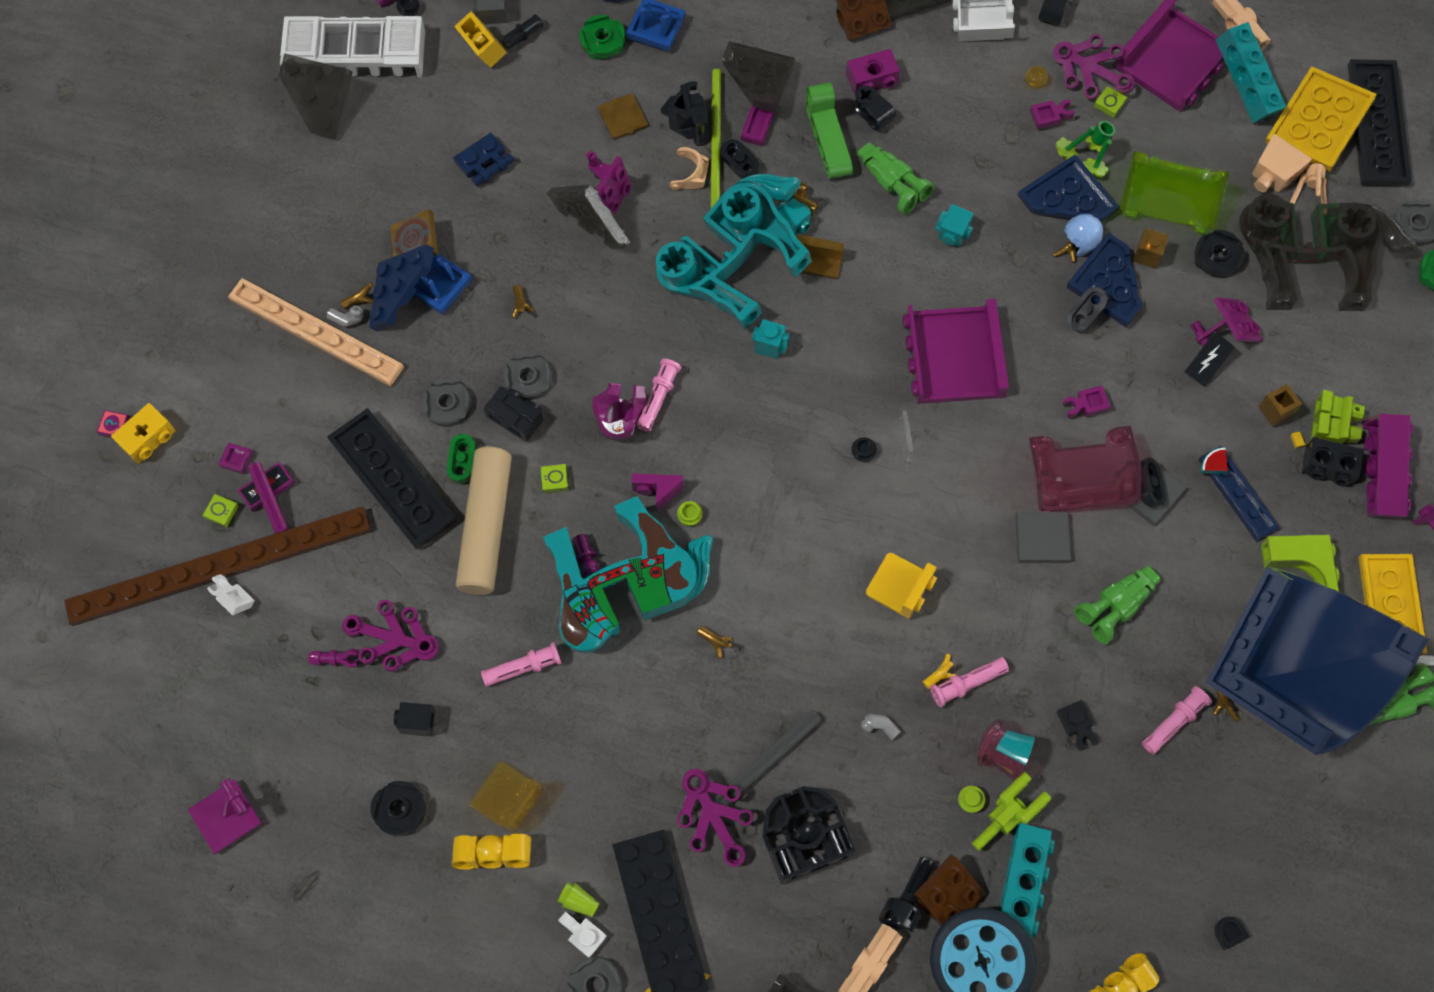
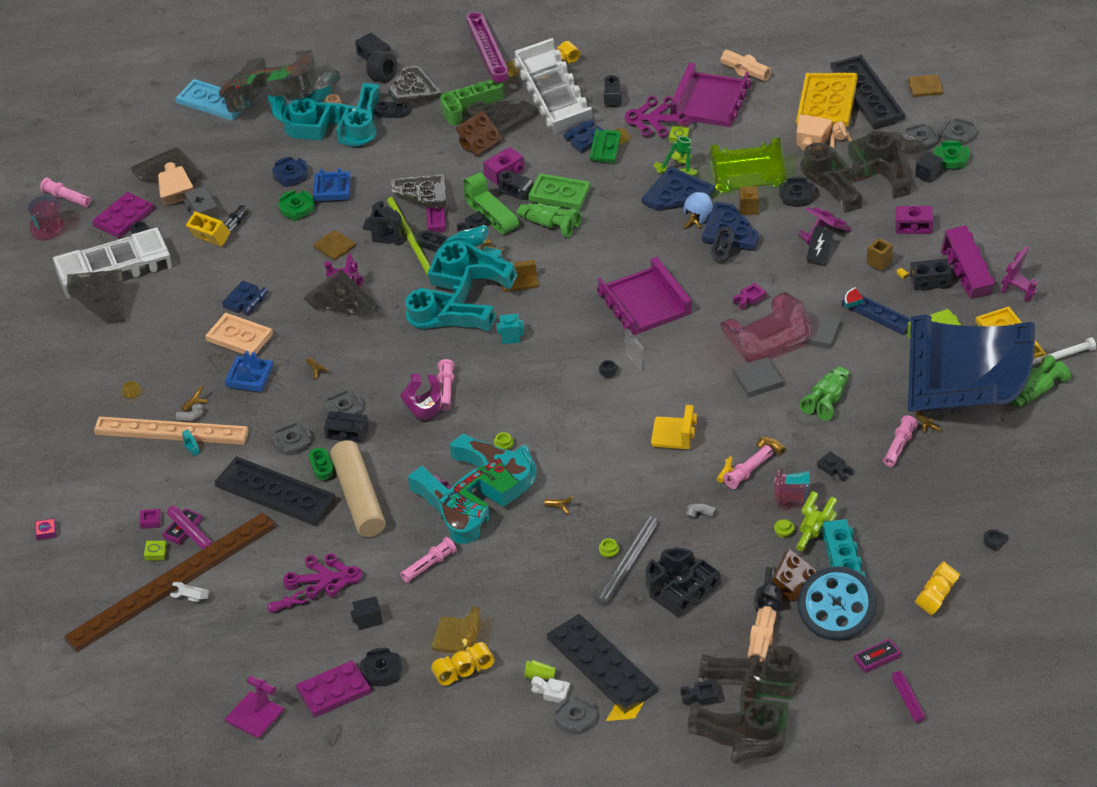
camera: 20 degrees left, 25 degrees down
(131, 434) = (73, 523): yellow brick -> none
(295, 251) = (130, 389): none -> clear yellow plate
(325, 357) = (190, 443): none -> teal tile
(331, 815) = (333, 688): none -> magenta plate
(396, 284) = (221, 378): dark blue plate -> none
(414, 233) = (219, 354): tile -> none
(455, 217) = (239, 334): none -> light nougat plate
(554, 478) = (395, 454): lime tile -> none
(664, 486) = (476, 429): magenta slope -> none
(698, 178) = (404, 250): light nougat helmet -> none
(711, 813) = (609, 590): magenta plant -> none
(744, 739) = (608, 548): none -> lime plate
(802, 147) = (473, 221): none -> black plate
(924, 138) = (559, 191): none -> bright green plate
(954, 225) = (606, 230): teal brick -> none
(997, 66) = (584, 141): none -> dark blue plate
(1009, 88) = (605, 146): none -> green plate
(1014, 653) = (772, 443): none -> pearl gold arm
(1049, 115) = (640, 153): magenta plate -> none
(1152, 484) = (818, 324): black plate -> none
(1250, 72) = (766, 86): teal brick -> none
(1333, 418) = (921, 249): lime hips -> none
(1336, 364) = (913, 219): none -> magenta brick
(1405, 281) = (929, 167): none -> black brick

